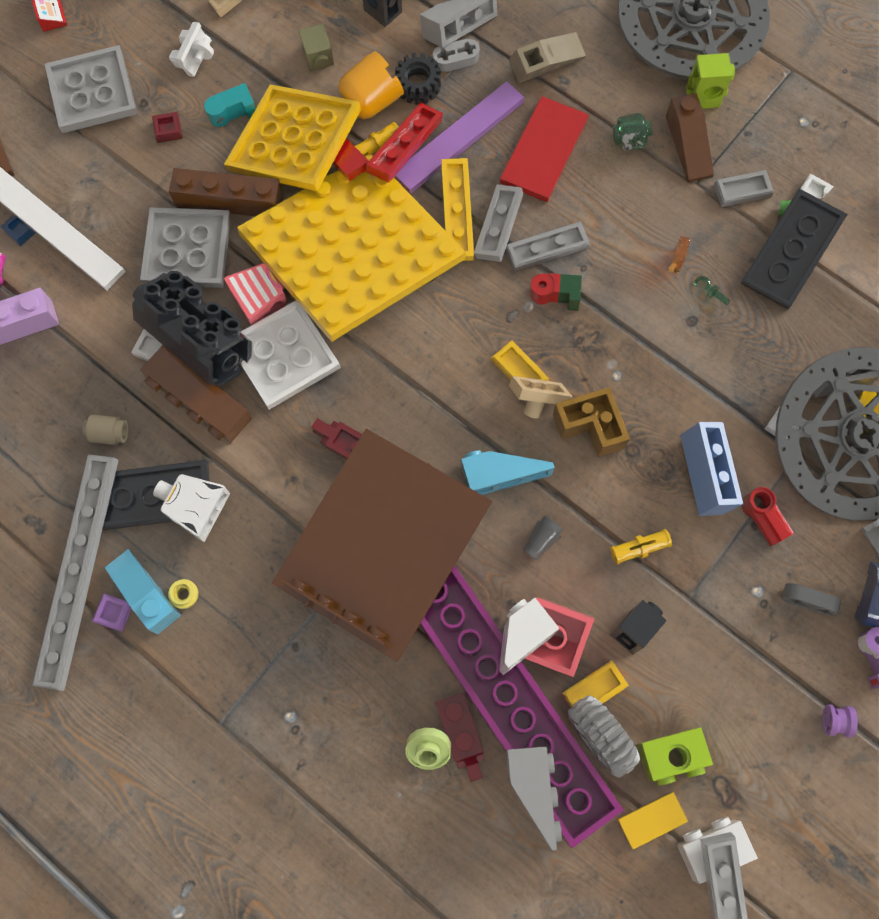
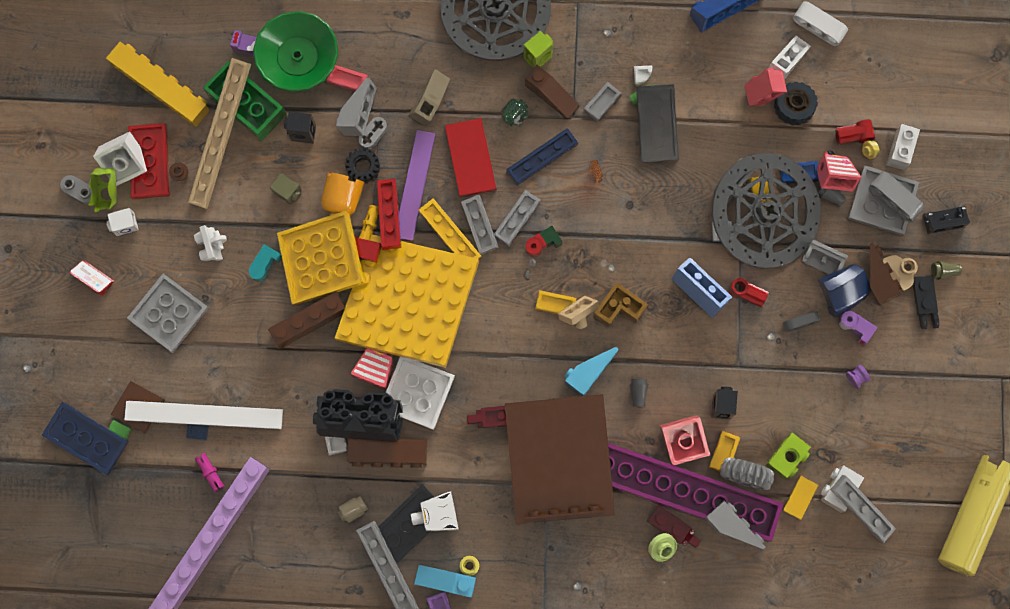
camera: 35 degrees left, 5 degrees up
(167, 127) = (234, 303): dark red tile -> none
(187, 243) = (309, 370): light grey plate -> none
(524, 632) = (671, 452): white slope -> none
(624, 551) = (686, 368): yellow pin -> none
(628, 201) = (542, 156): none -> dark blue tile
(713, 291) = (629, 179): clear green hand -> none

